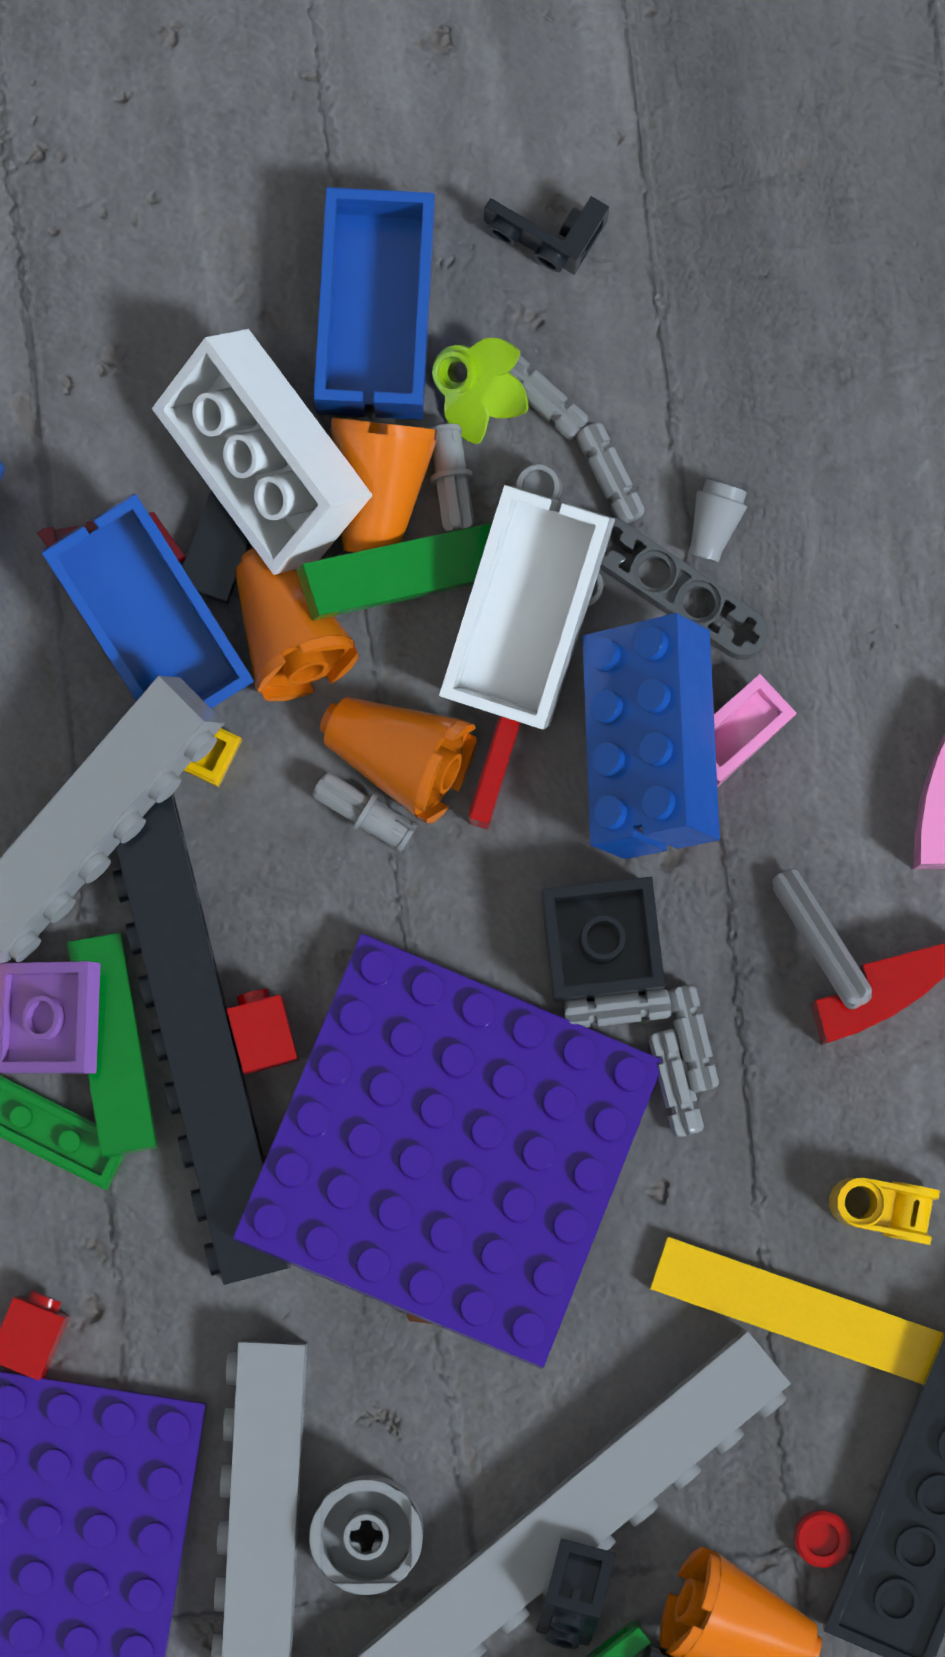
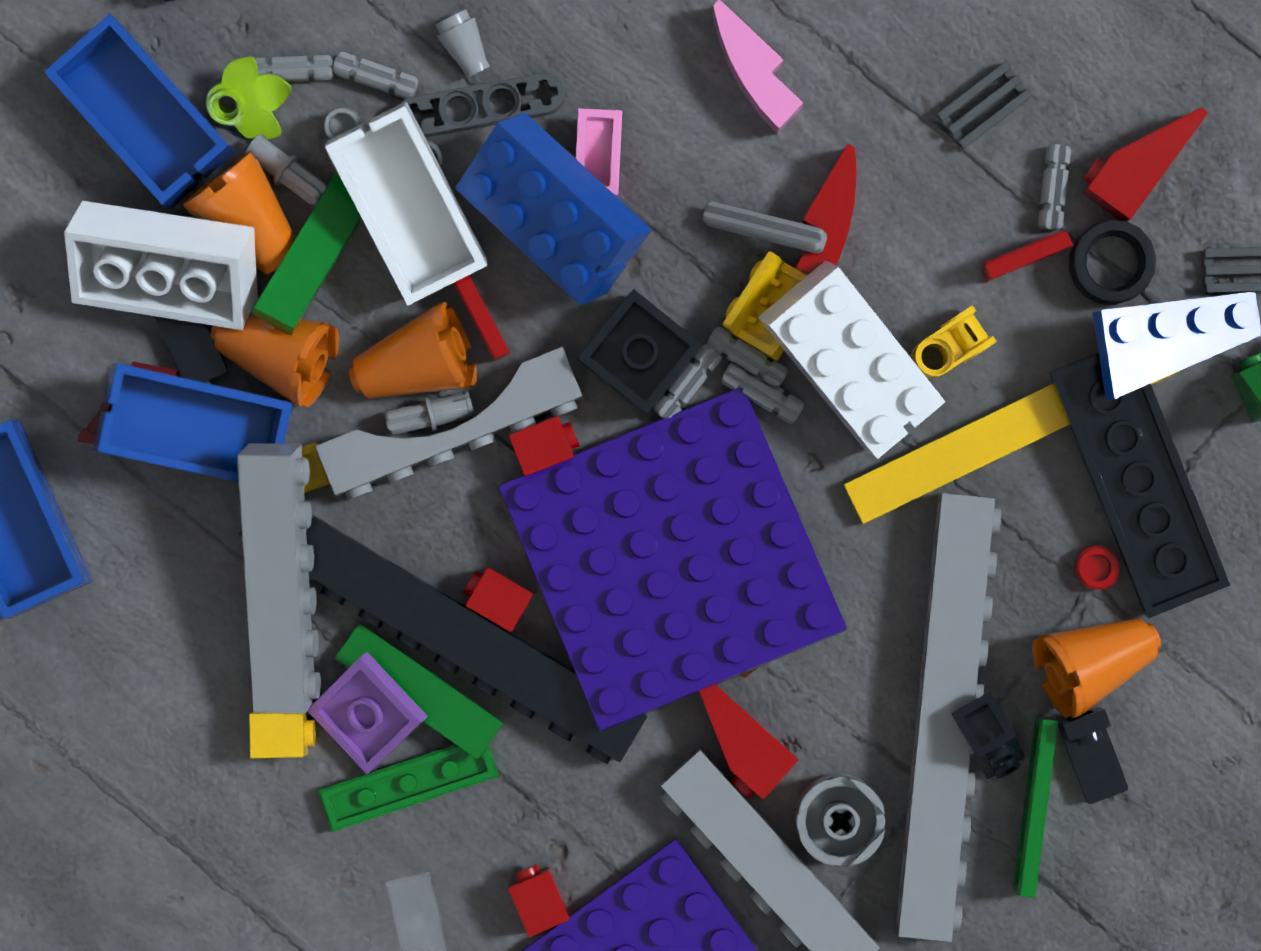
camera: 45 degrees left, 5 degrees up
(350, 1388) = (748, 747): none -> red slope
(437, 937) = (544, 445): none -> red brick
(478, 881) = (364, 458): none -> light grey arch
(760, 1014) = (767, 284): none -> yellow bracket
(784, 1131) = (851, 359): none -> white piece

